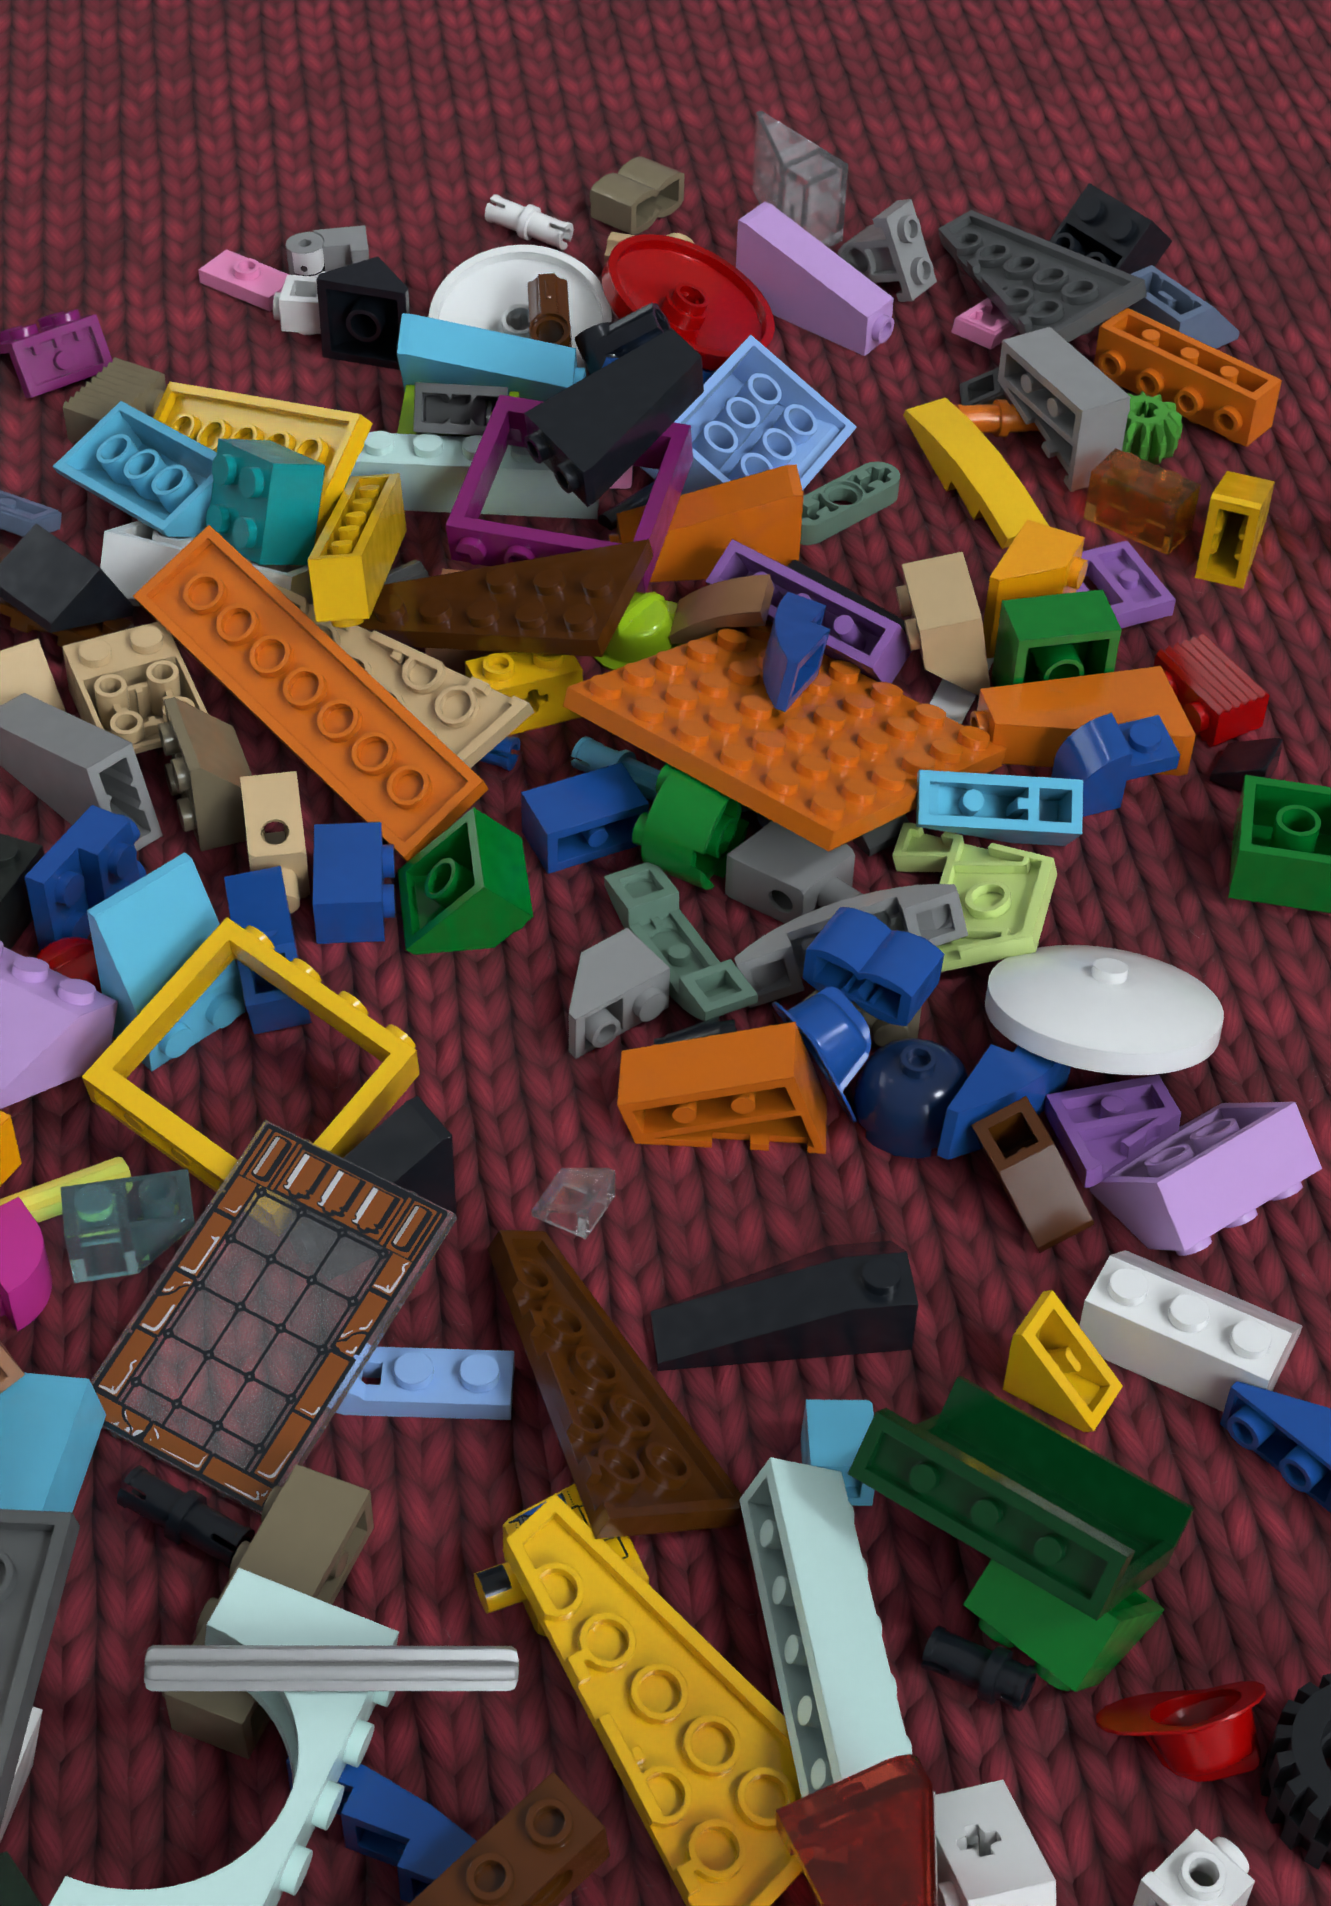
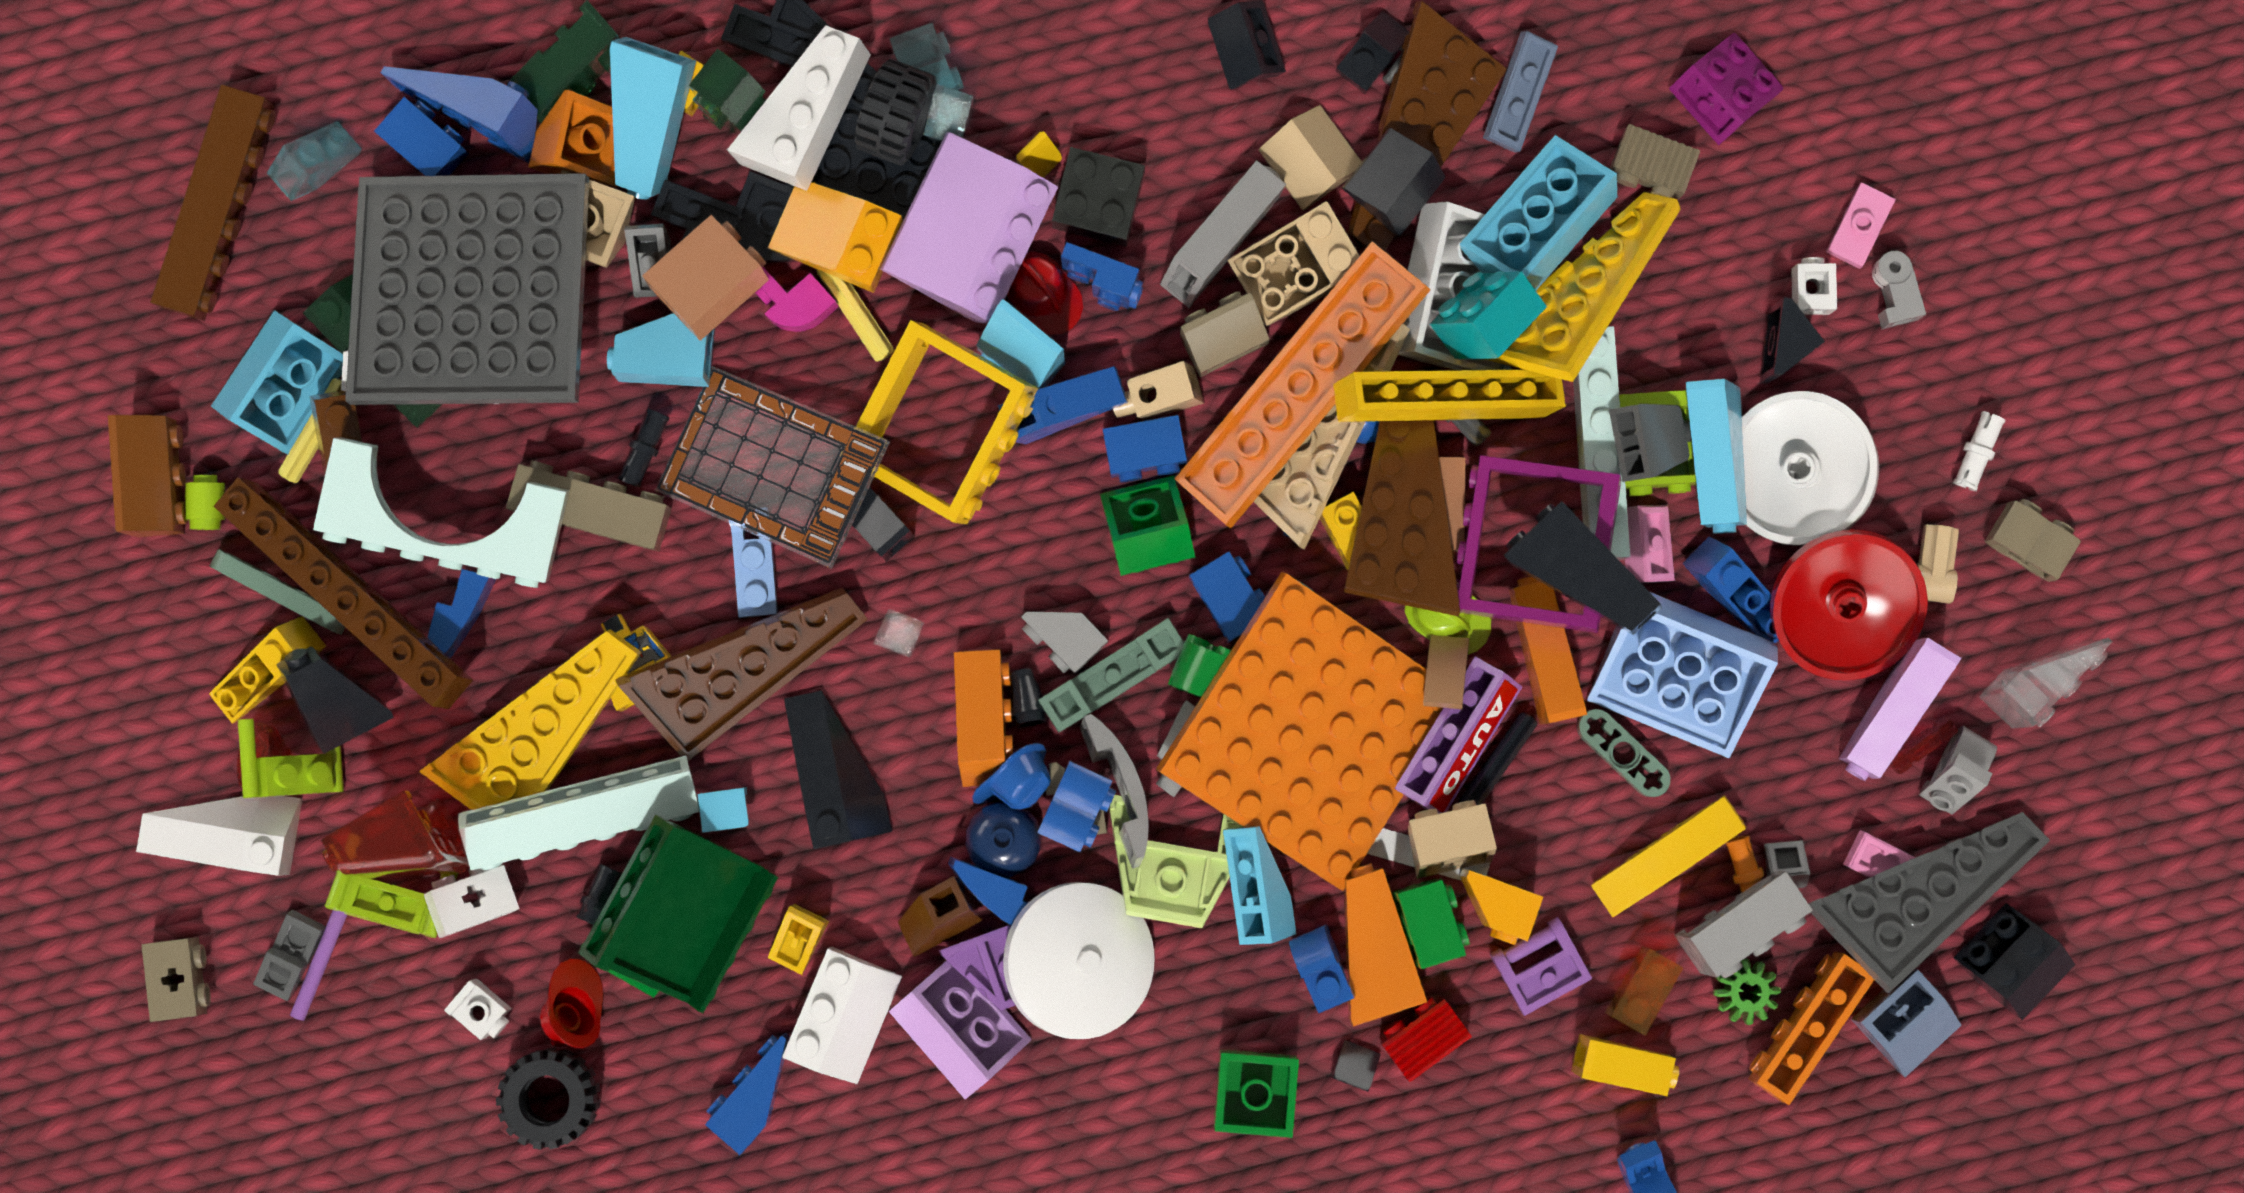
camera: 85 degrees right, 40 degrees up
(124, 1222) = (833, 368): clear light blue slope -> none
(330, 1668) = (507, 554): light grey axle -> none
(549, 310) = (1785, 494): reddish brown piece -> none
(620, 337) = (1760, 551): black piece -> none
(794, 649) = (1379, 728): blue slope -> none

